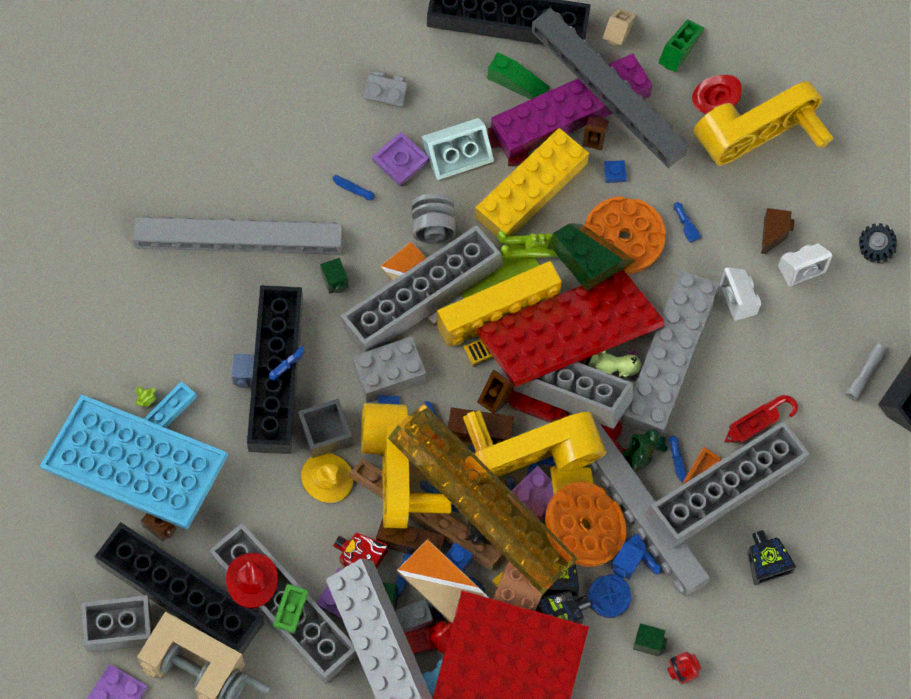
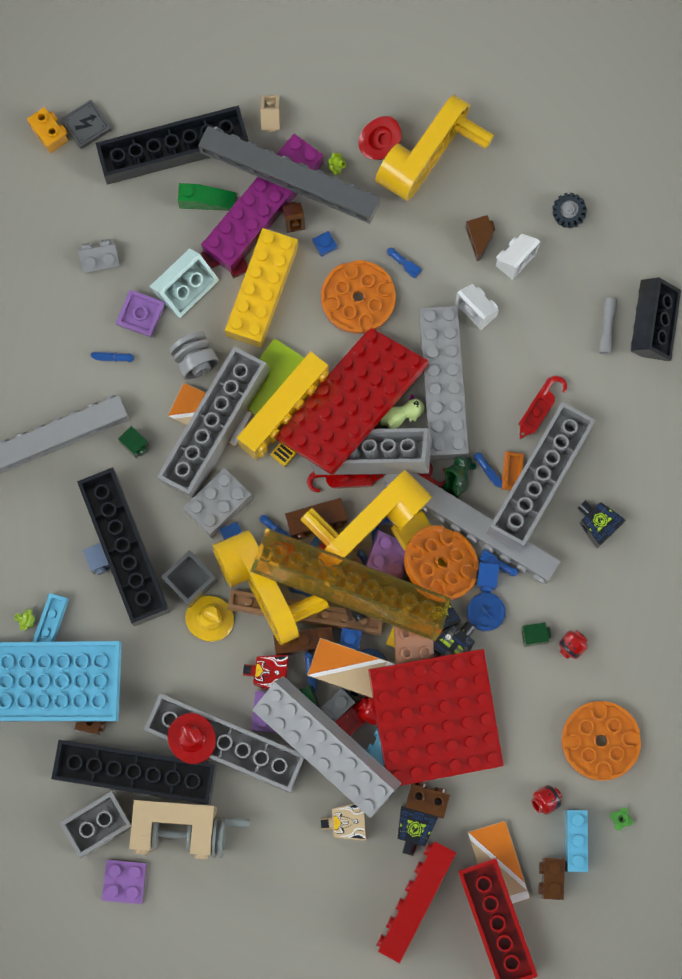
camera: 20 degrees left, 10 degrees up
(274, 374) = (131, 542): blue piece -> none
(290, 608) = (235, 748): bright green plate -> none
(496, 392) = (316, 486): reddish brown slope -> none
(535, 246) = (291, 339): lime piece -> none
(588, 254) = (338, 329): dark green wedge -> none
(662, 100) = (336, 163): none -> lime plant
(680, 45) = (329, 106): green slope -> none

